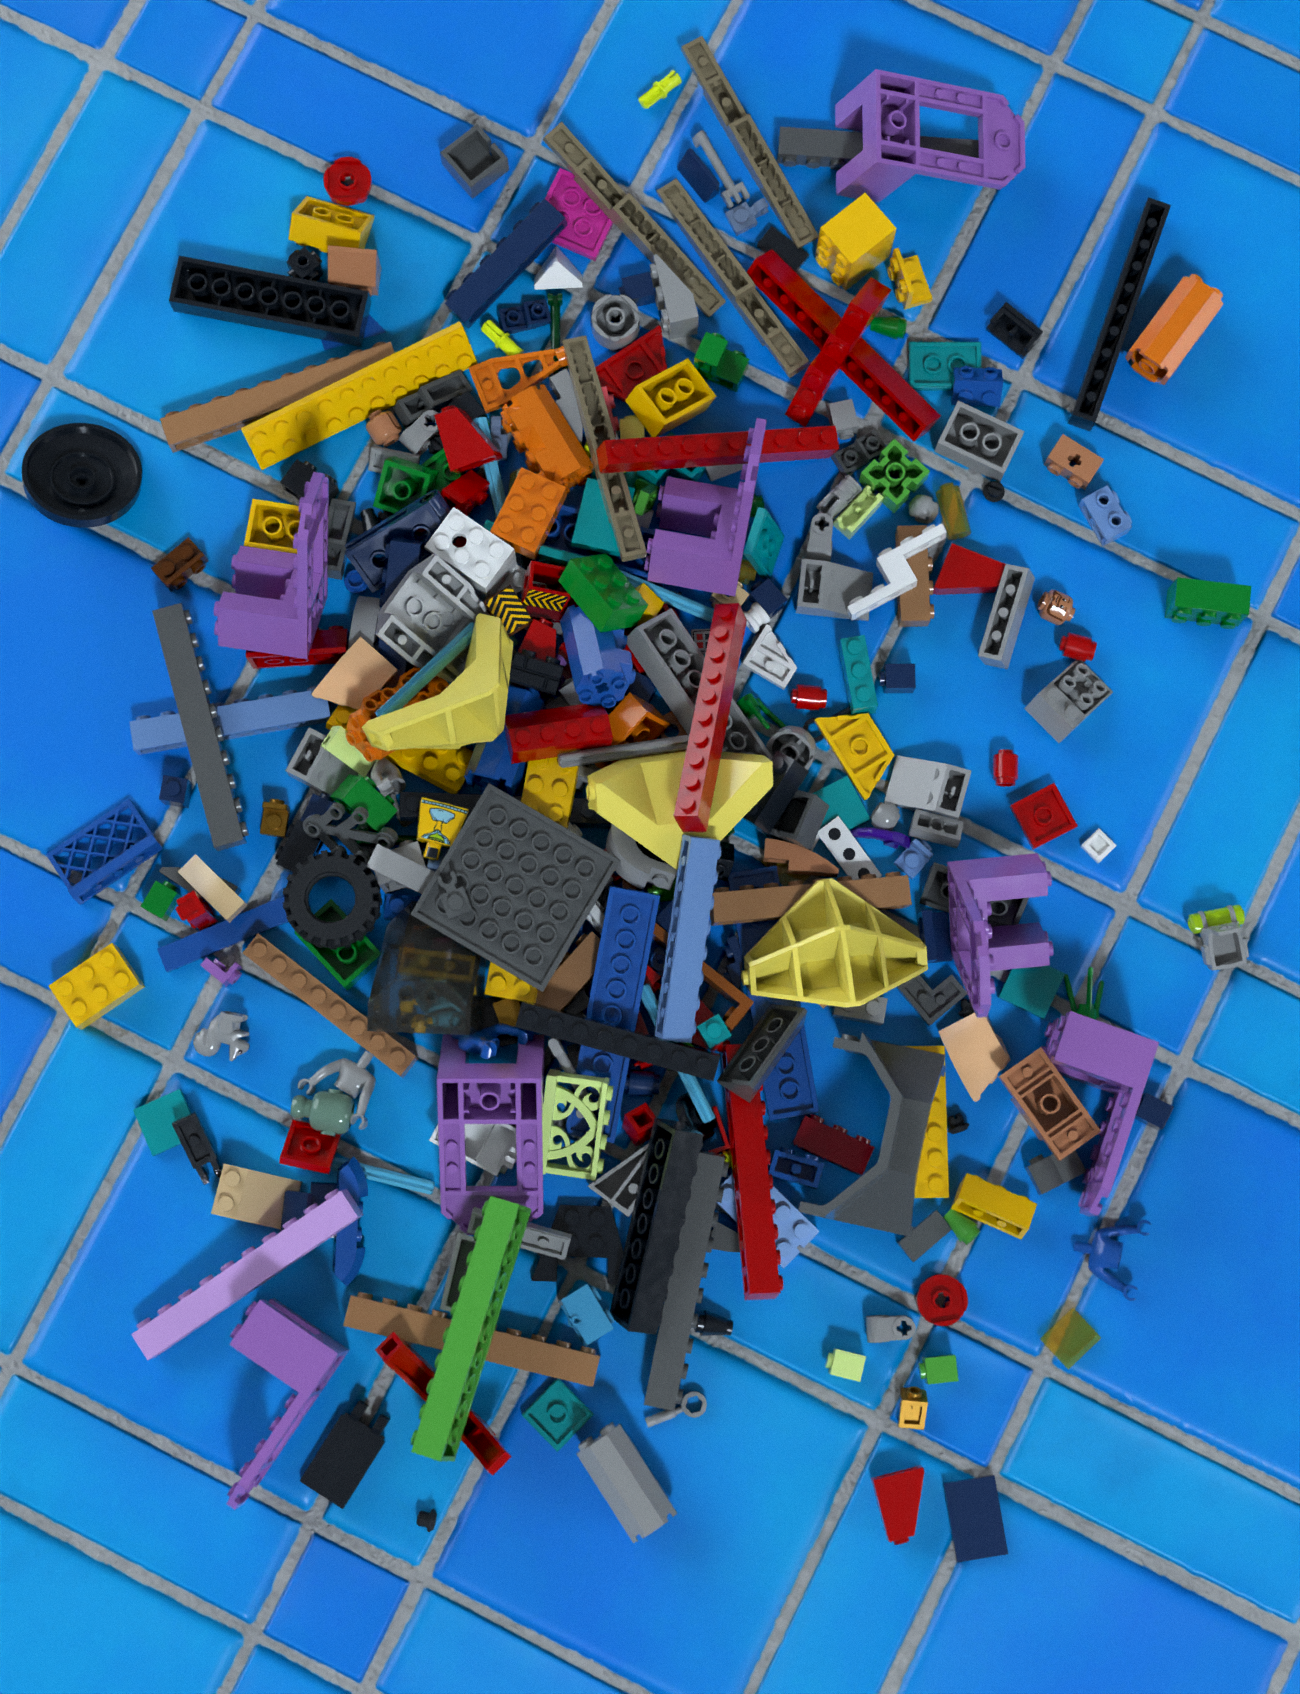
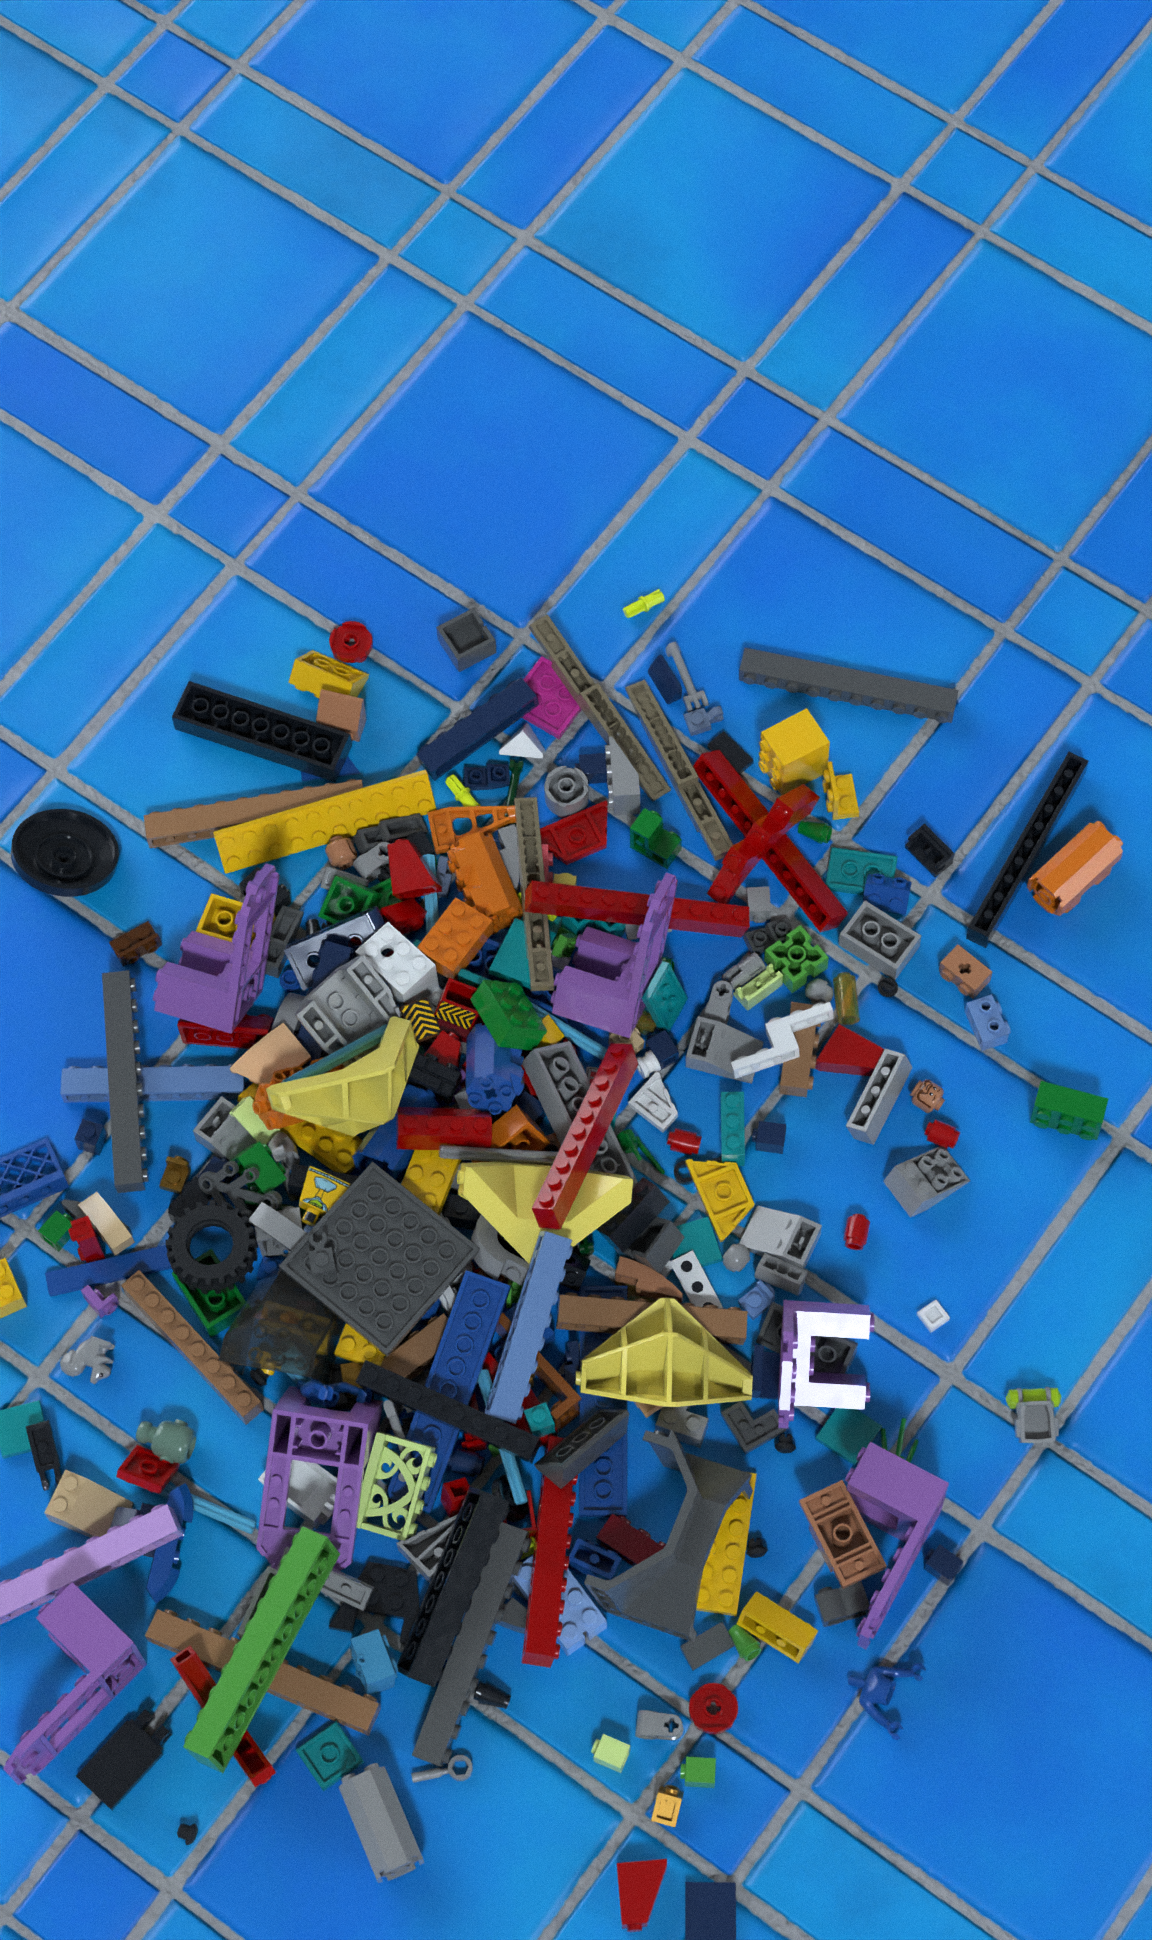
camera: 15 degrees right, 15 degrees down
(305, 265) = (298, 705): black brick -> none
(351, 1079) = (198, 1417): light grey piece -> none
(670, 398) = (604, 861): yellow brick -> none
(749, 143) = (715, 658): dark tan slope -> none
(794, 743) = (664, 1176): light grey cylinder -> none
(889, 116) = (838, 650): medium lavender bracket -> none
(889, 838) = (738, 1277): dark purple piece -> none
(975, 1052) = (783, 1482): light nougat slope -> none
(1043, 816) = (885, 1280): red plate -> none
(1070, 1338) = (831, 1765): clear yellow piece -> none

